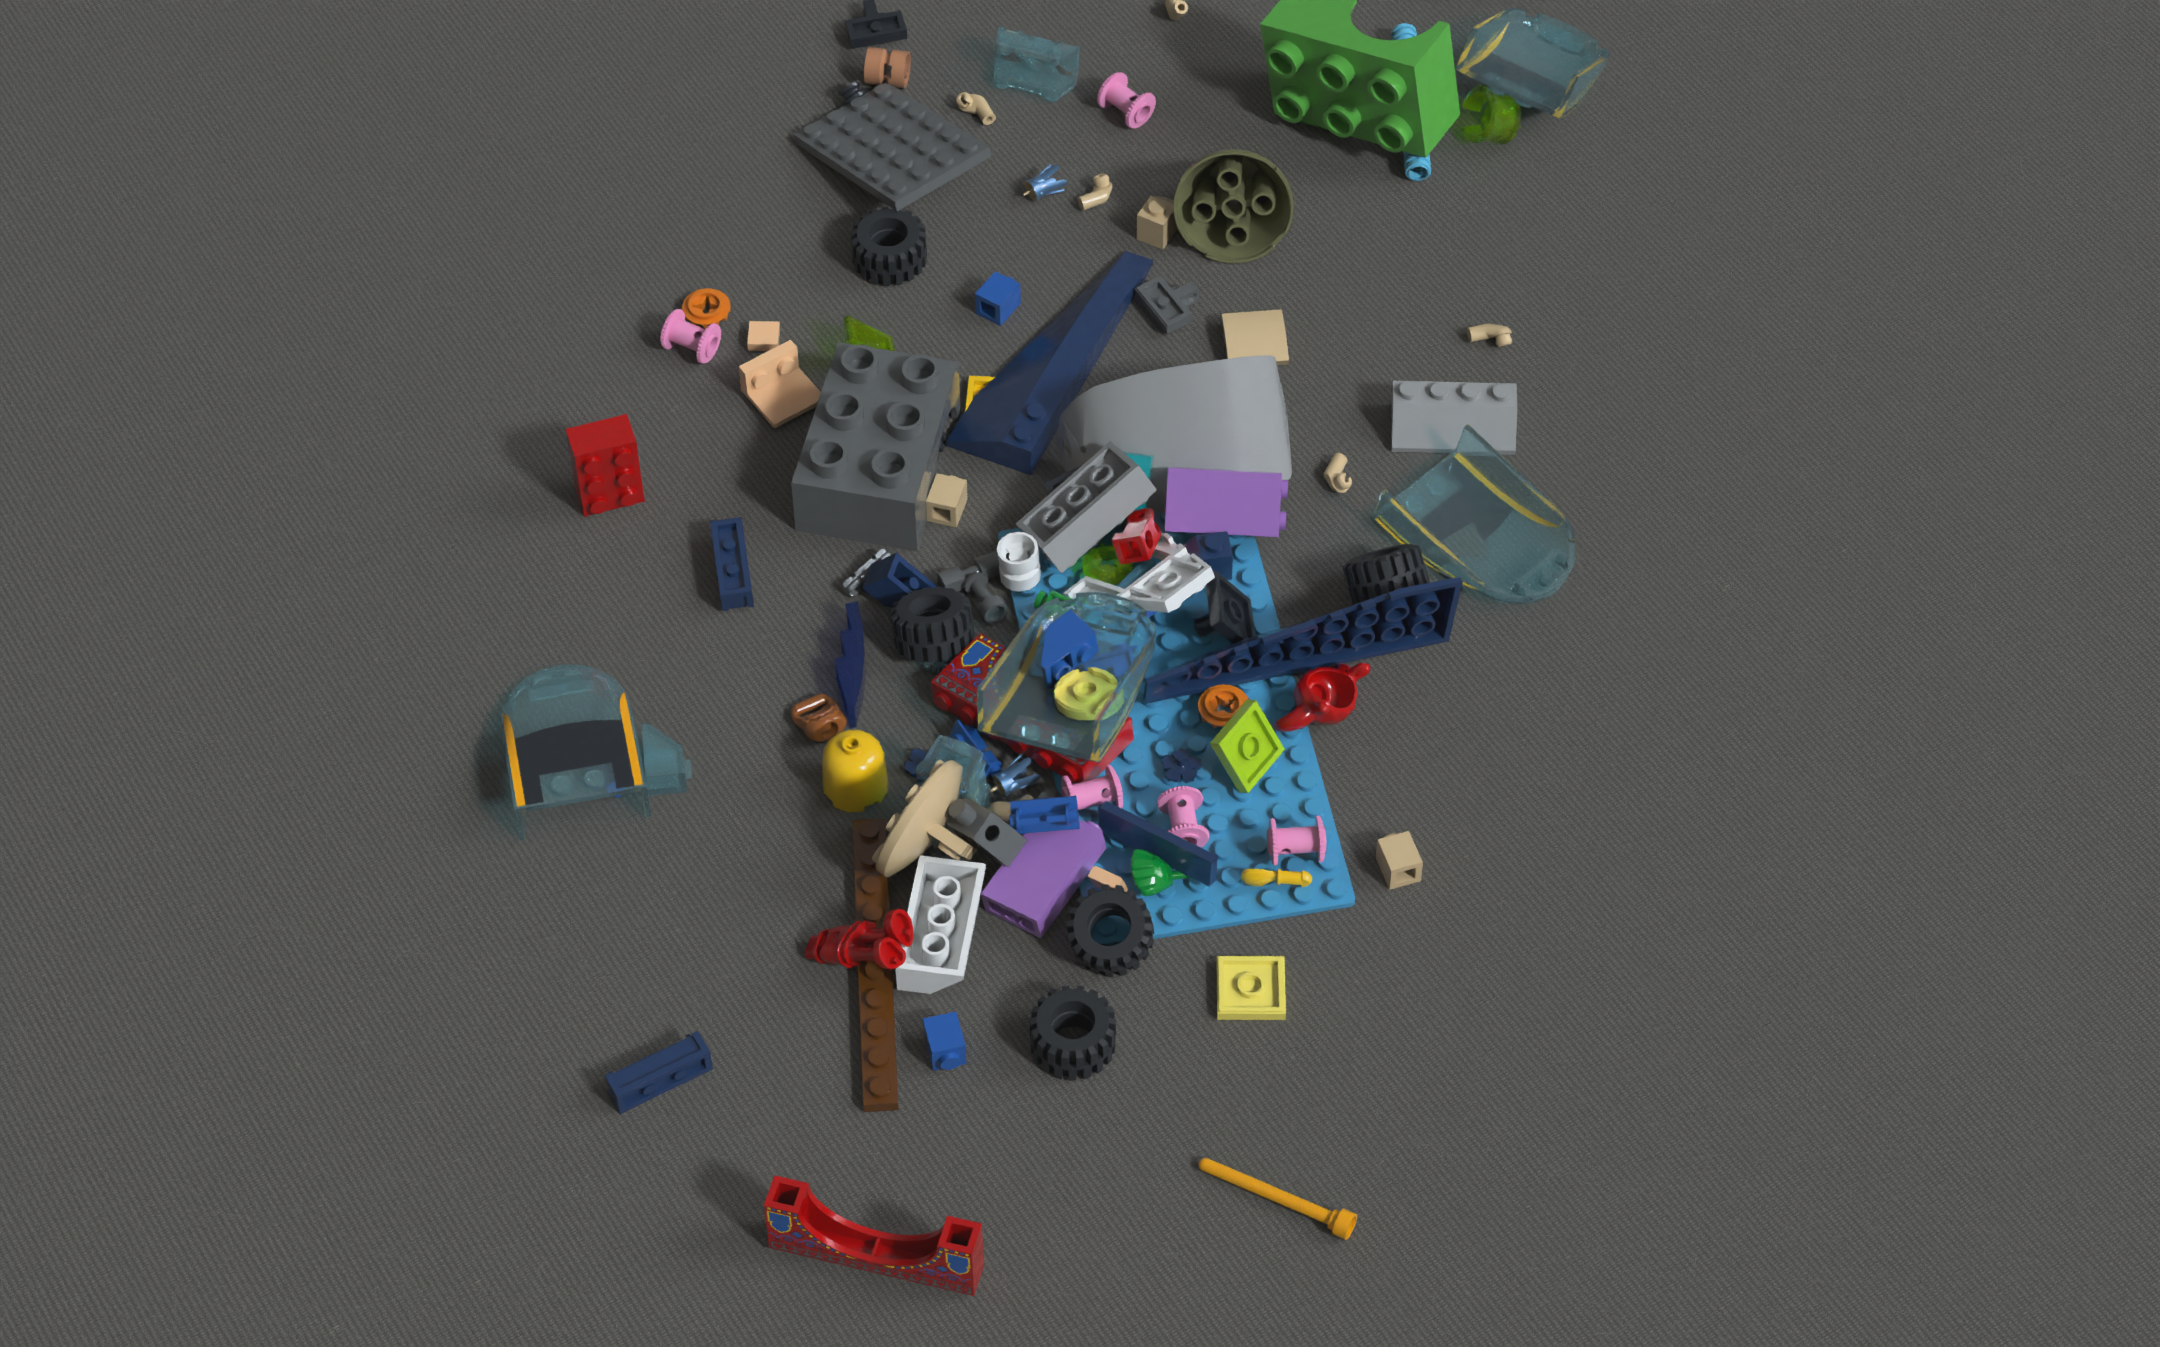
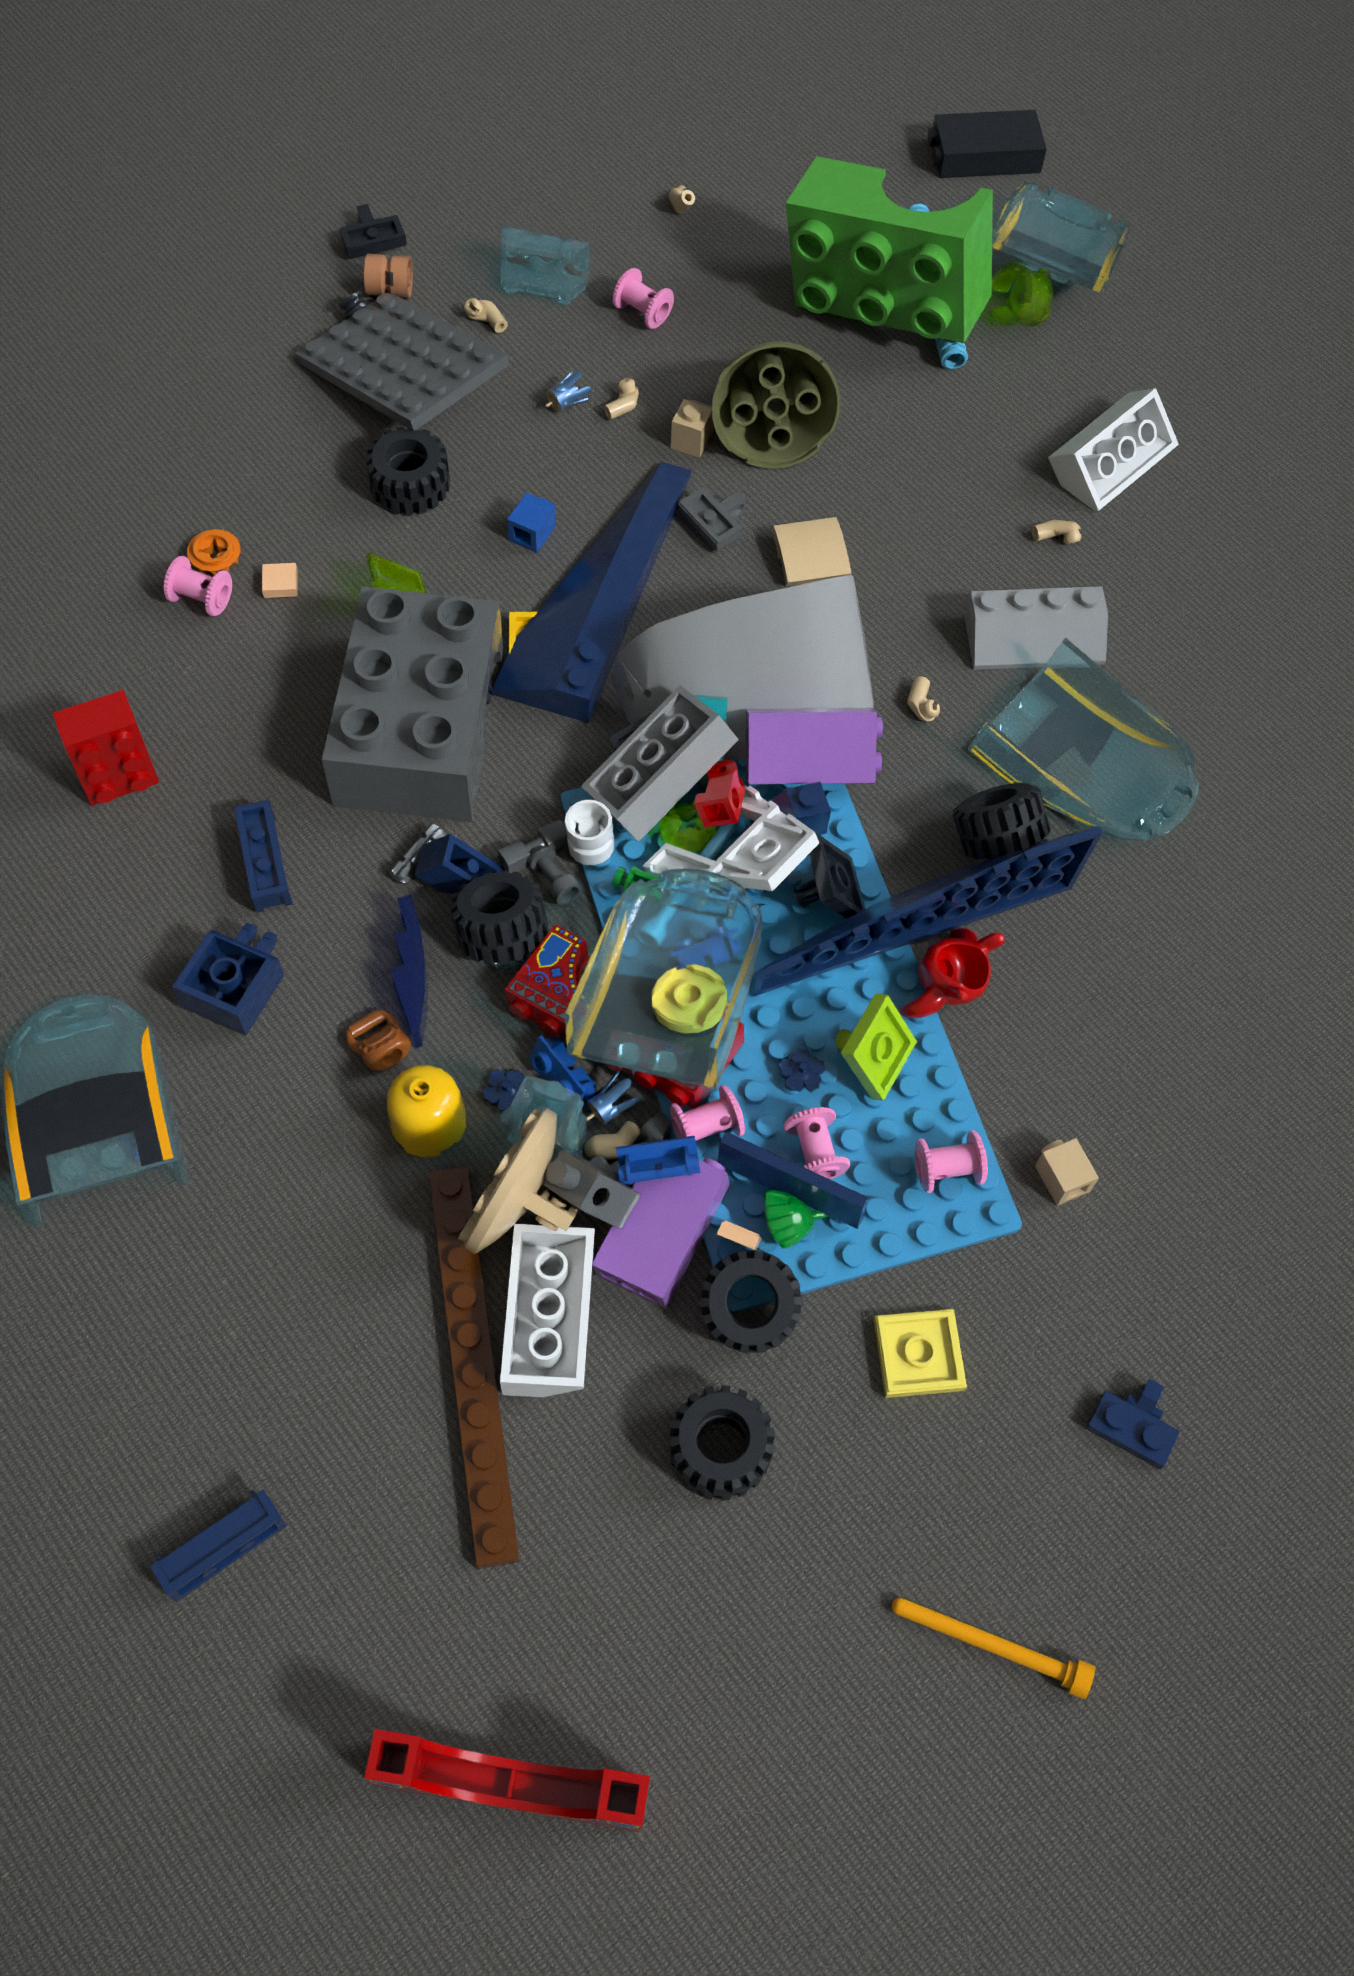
camera: 10 degrees left, 10 degrees up
(664, 763) = (199, 1116): clear light blue slope -> none
(697, 658) = (230, 978): none -> dark blue hinge
(778, 385) = (300, 636): light nougat bracket -> none
(864, 942) = (442, 1346): red piece -> none
(944, 1041) = (568, 1468): blue brick -> none
(946, 500) = (499, 760): tan brick -> none
(1066, 646) = (659, 940): blue slope -> none
(1223, 695) = (841, 979): orange gear -> none
(1261, 877) = (936, 1207): yellow piece -> none
(1425, 1053) = (1135, 1424): none -> dark blue hinge
(1558, 263) = (1115, 449): none -> white slope

